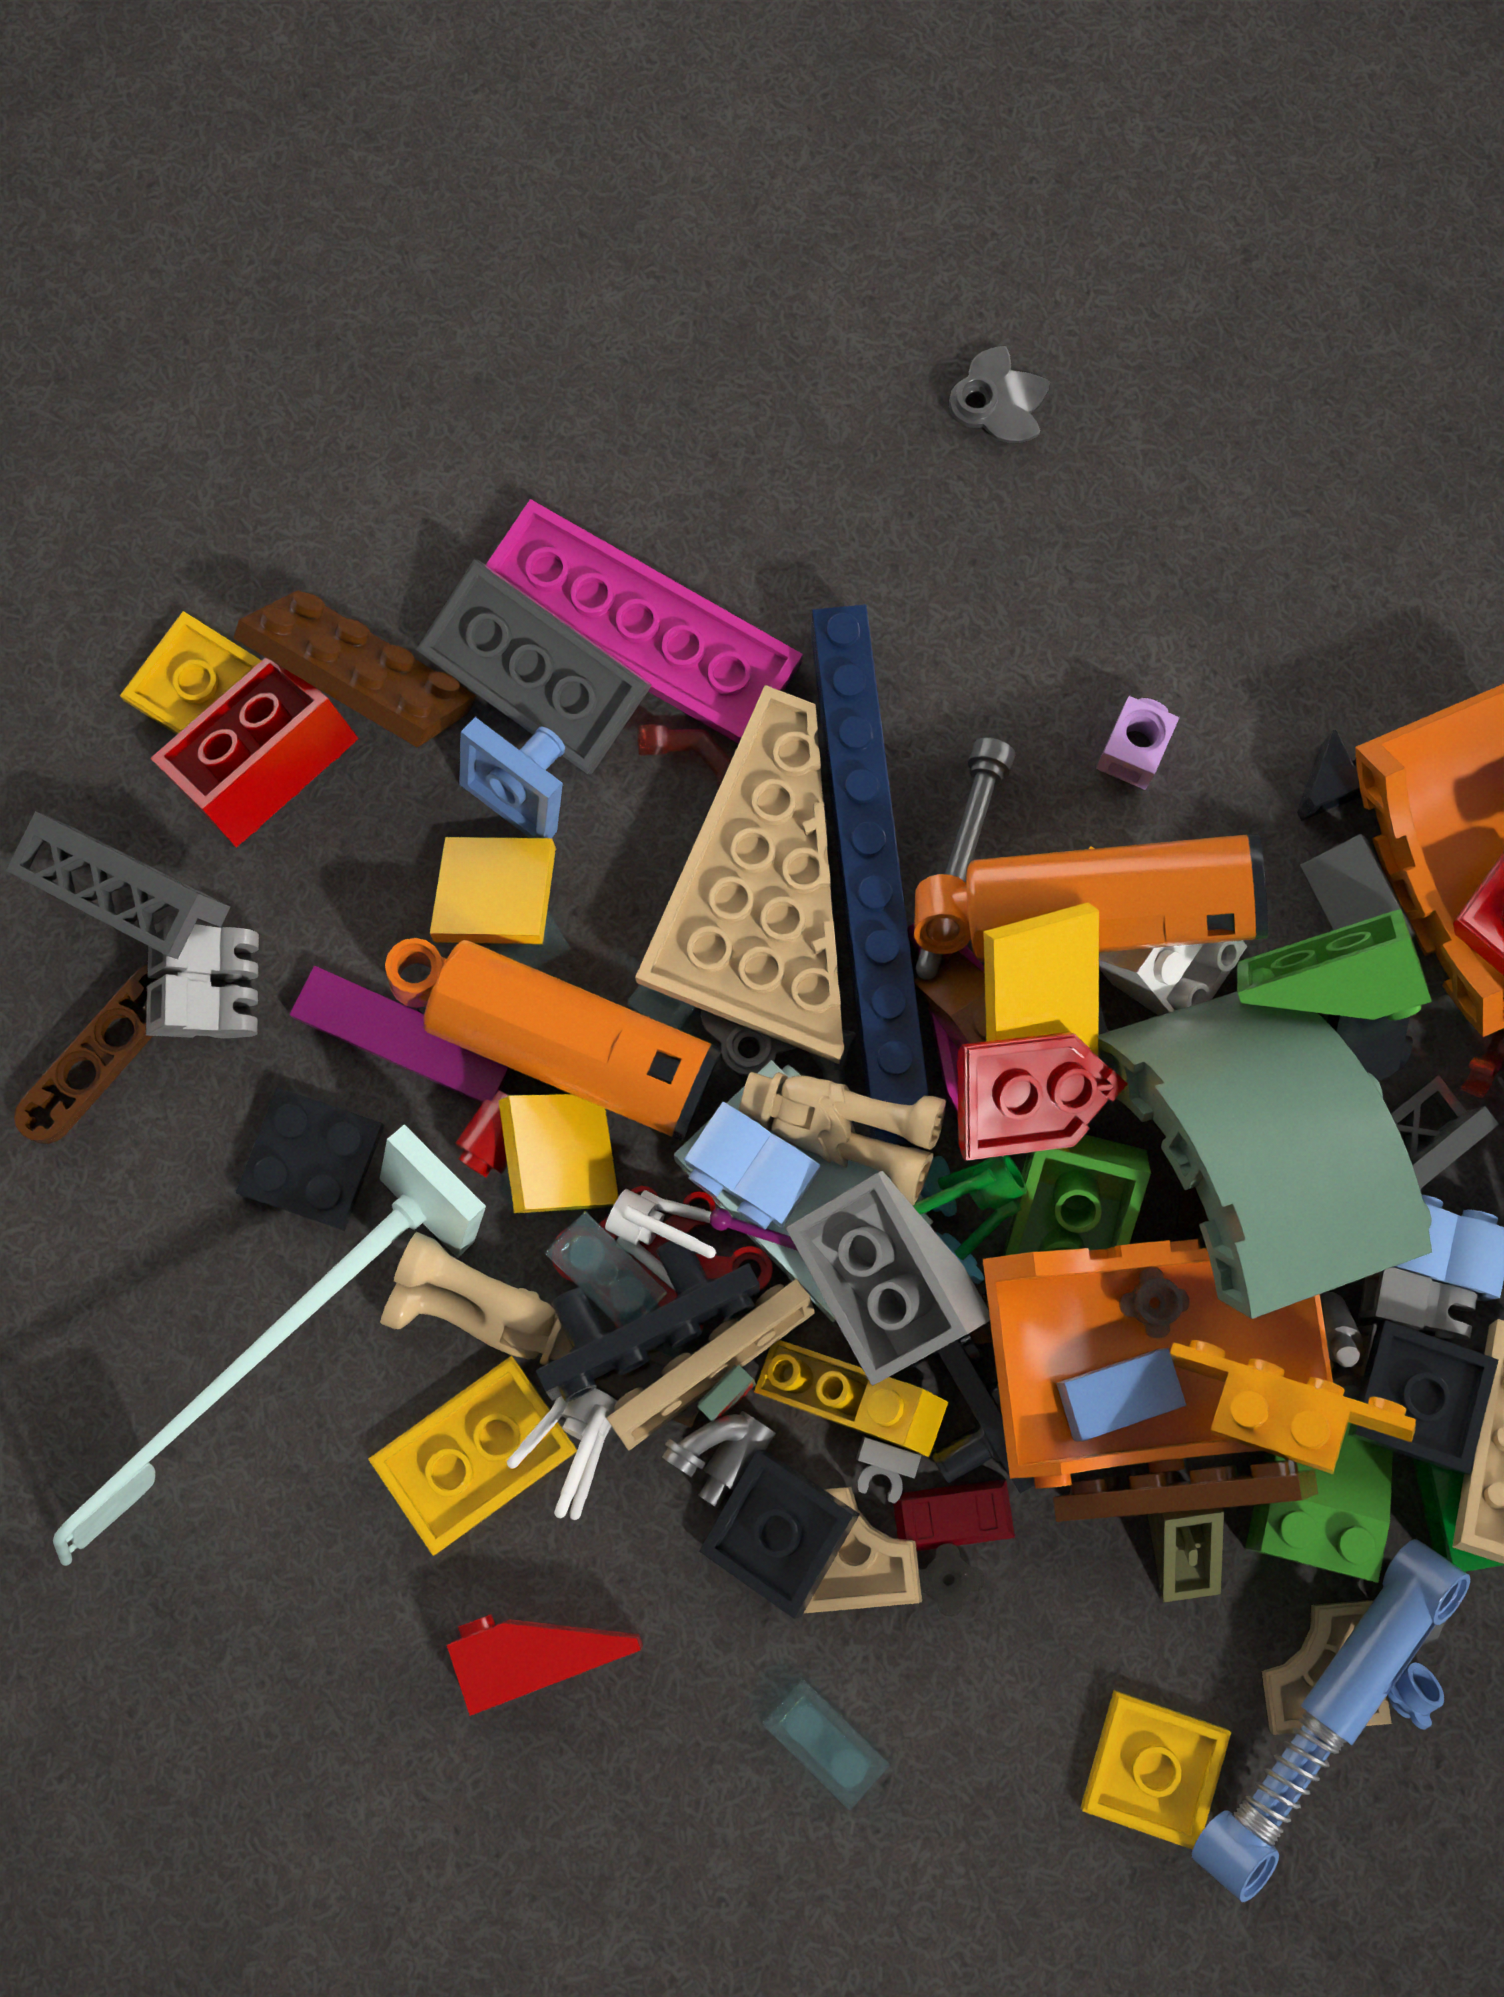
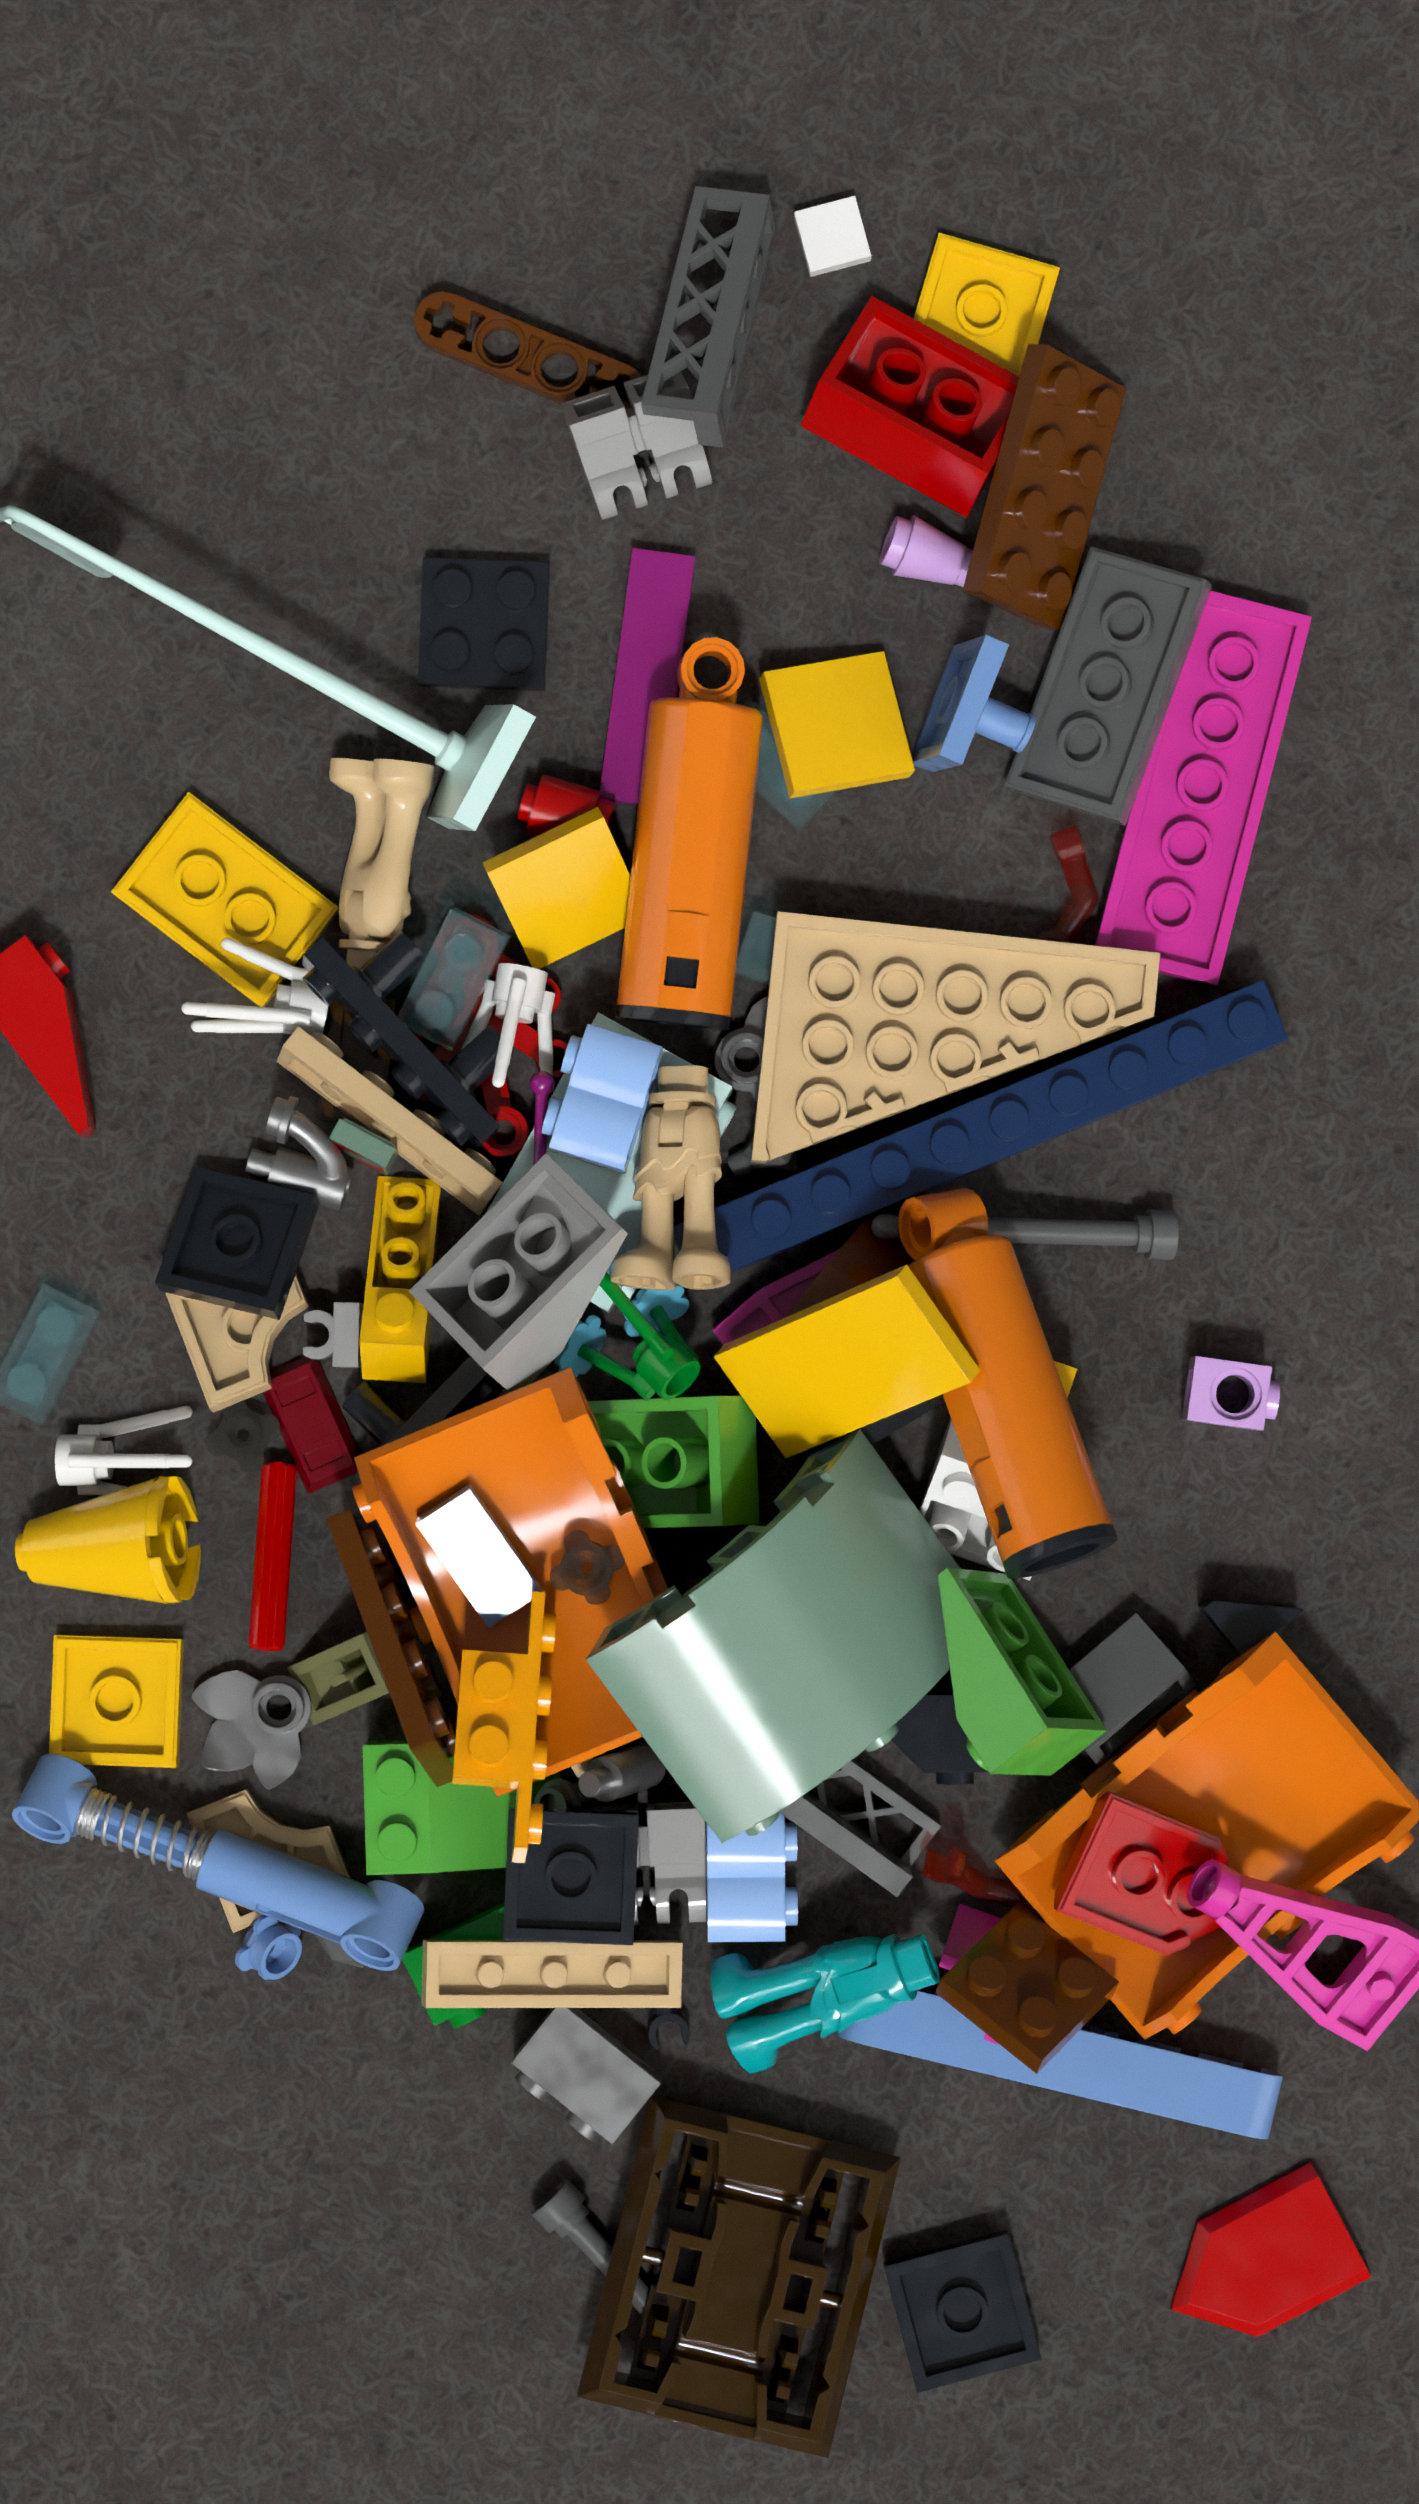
camera: 80 degrees right, 10 degrees up
(91, 780) = (832, 236): none -> white tile
(376, 780) = (924, 553): none -> lavender cone
(934, 1729) = (86, 1459): none -> white plant
(1019, 1726) = (118, 1544): none -> yellow cone
(1029, 1094) = (763, 1371): tile -> none
(1064, 1585) = (272, 1556): none -> red axle
(1208, 1656) = (247, 1731): none -> flat silver plate

